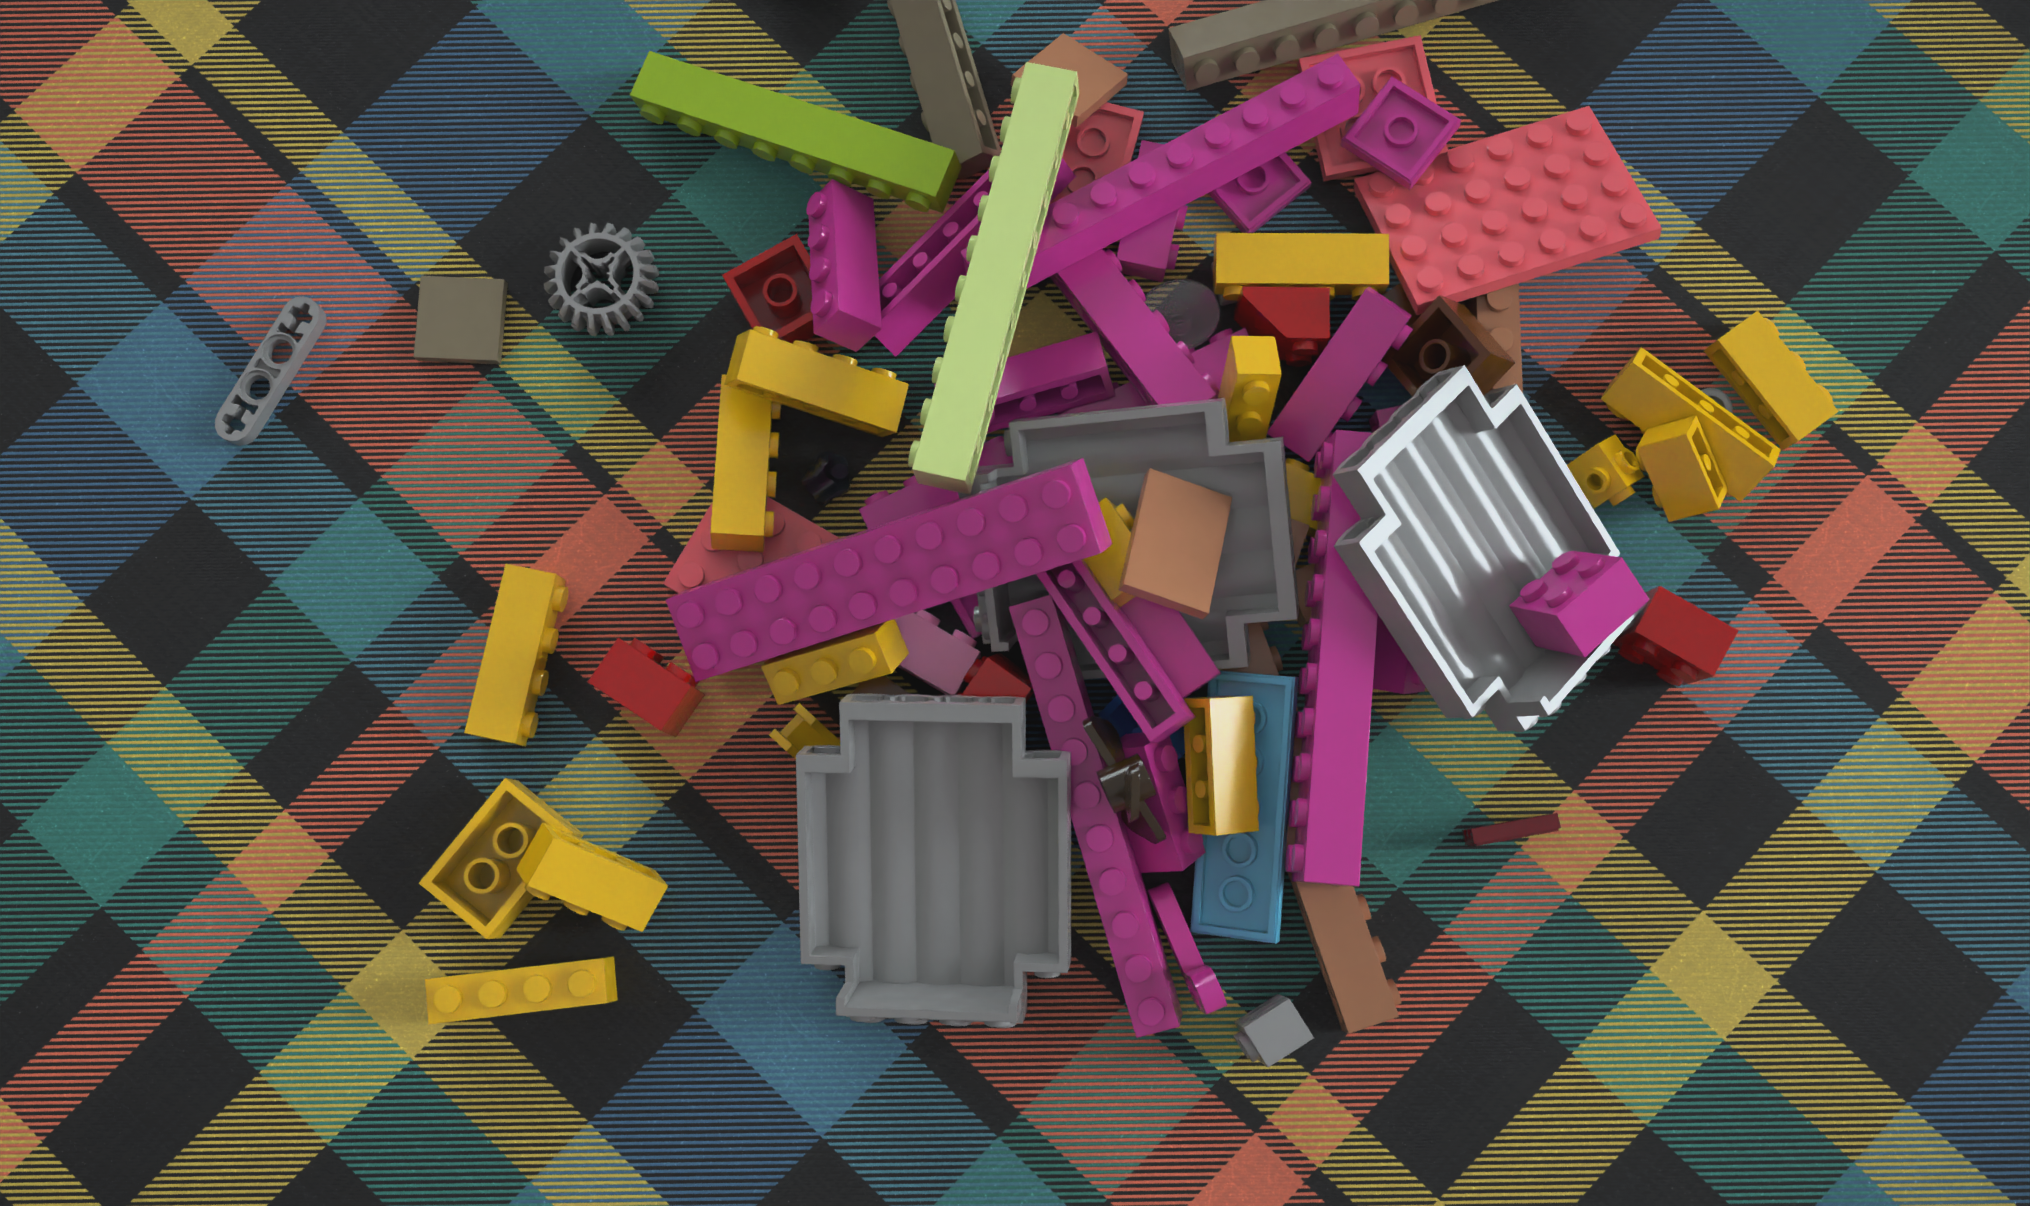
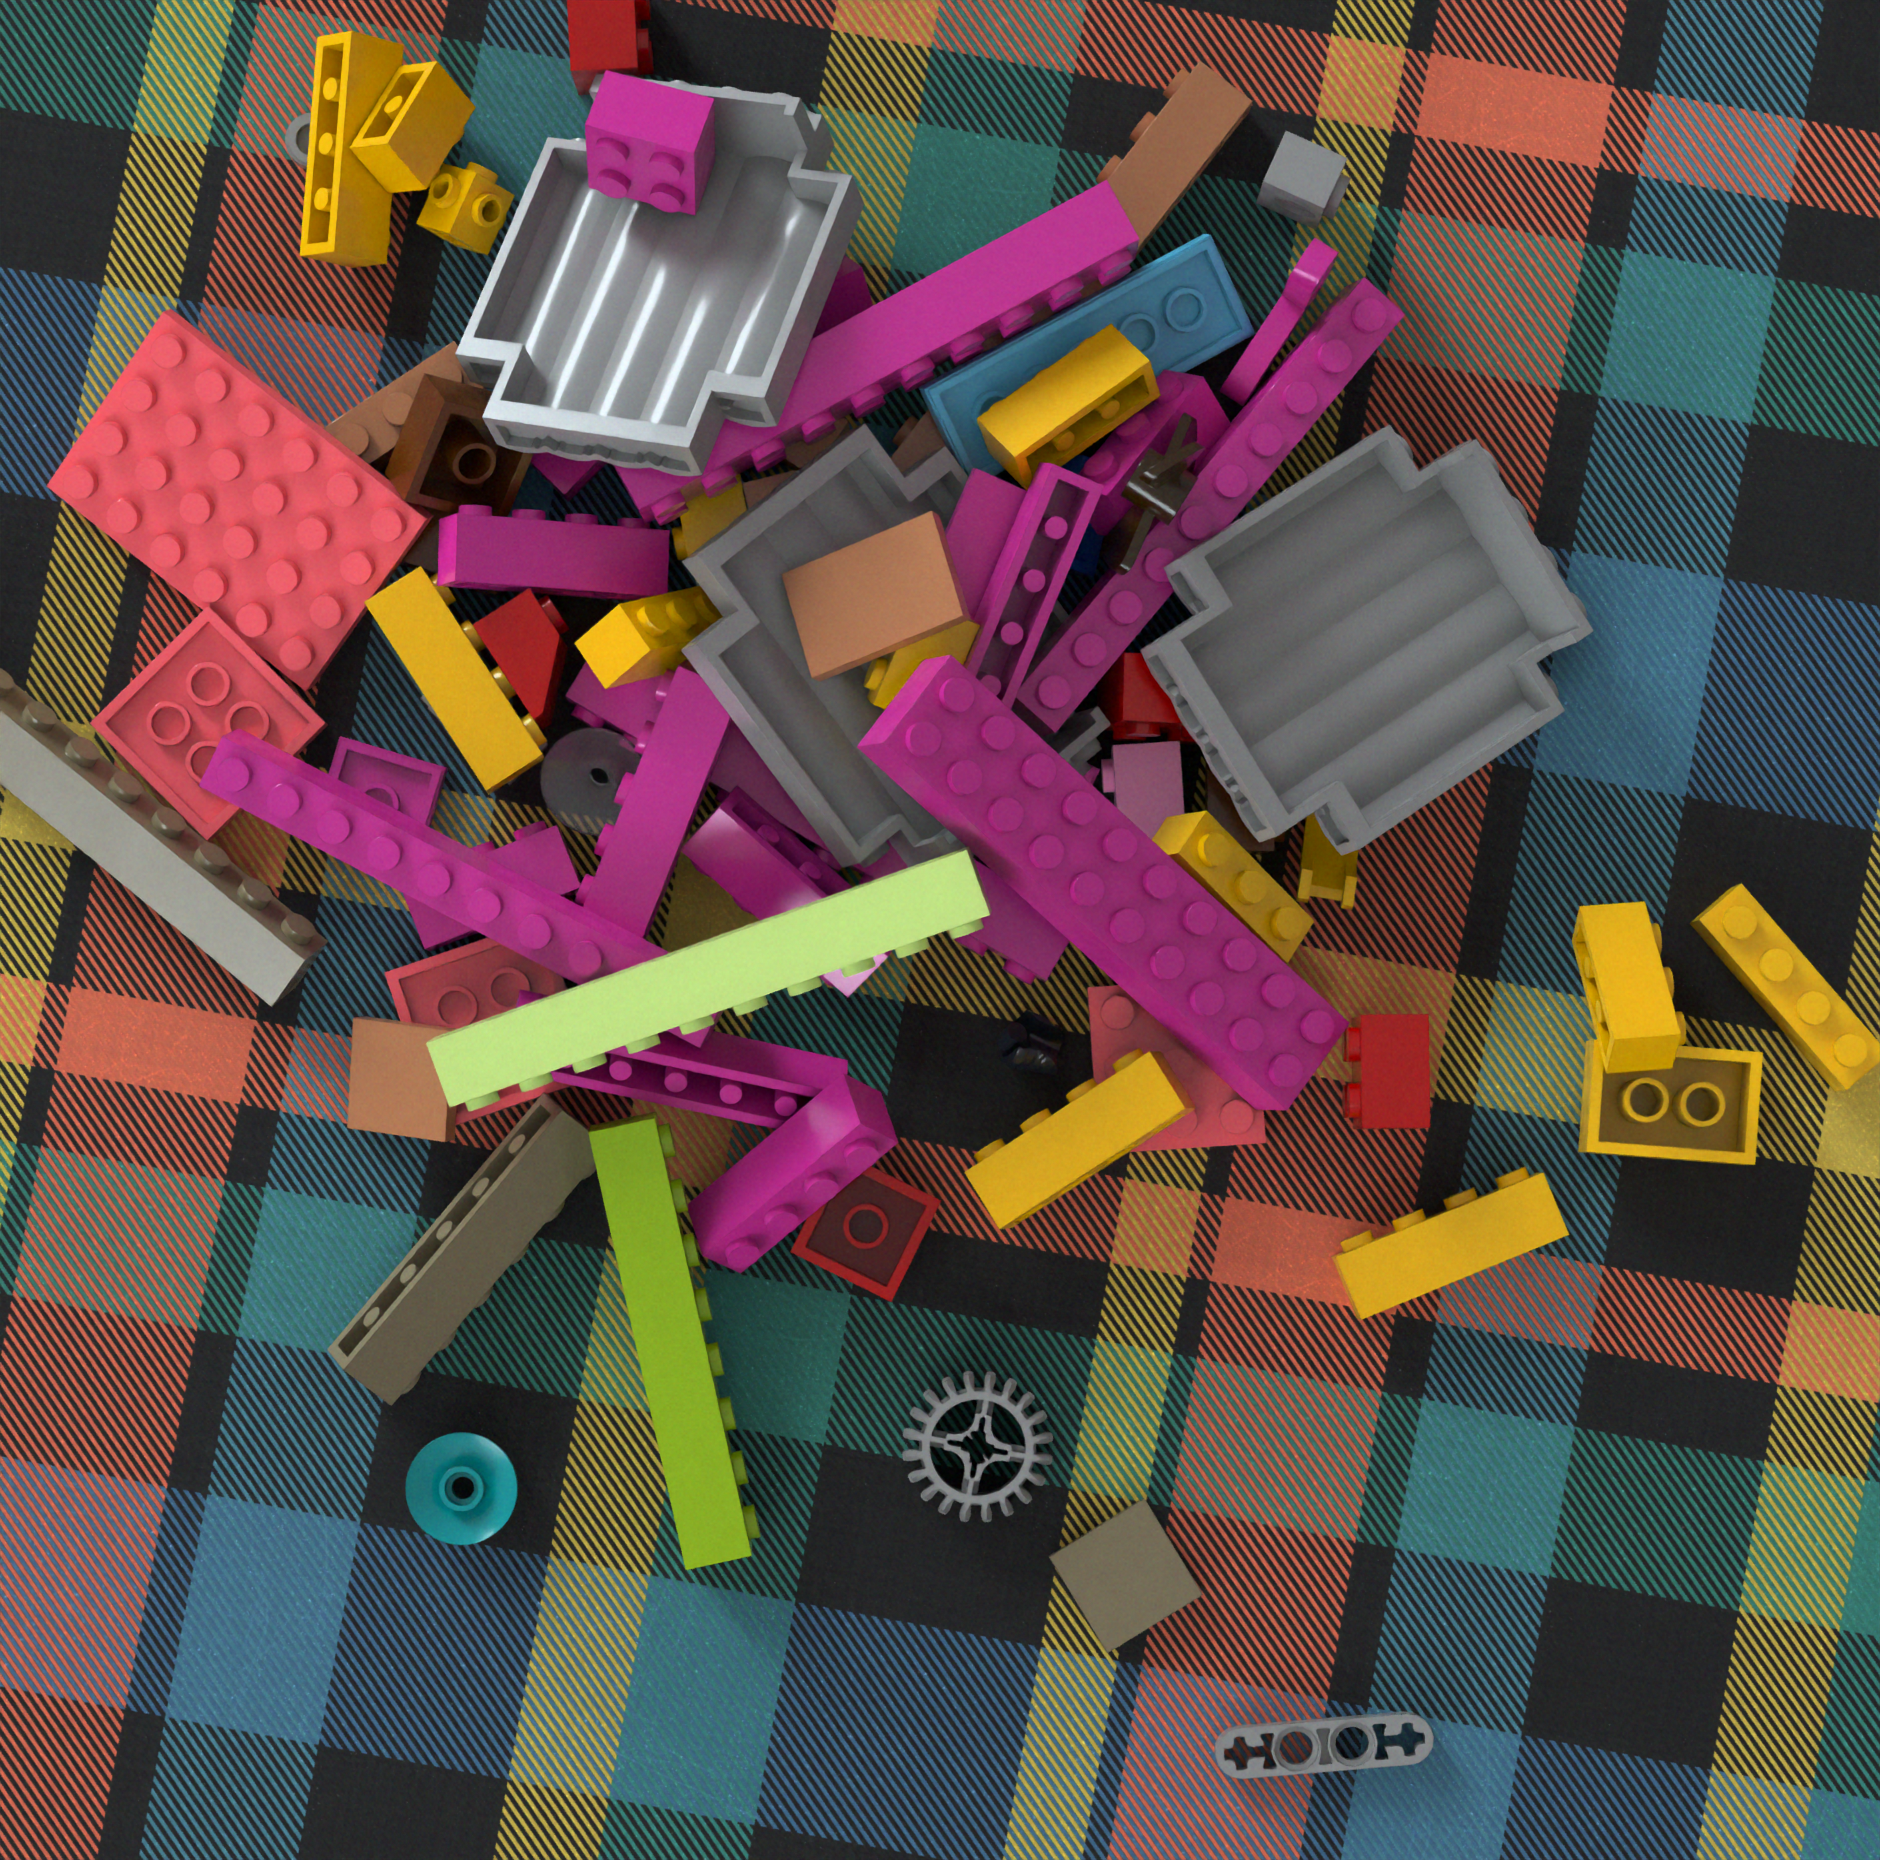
camera: 125 degrees left, 5 degrees up
(816, 382) = (942, 1115): yellow brick -> none
(1400, 133) = (225, 669): dark pink tile -> none
(1511, 830) = (923, 68): dark red tile -> none
(1771, 380) = (238, 94): yellow brick -> none

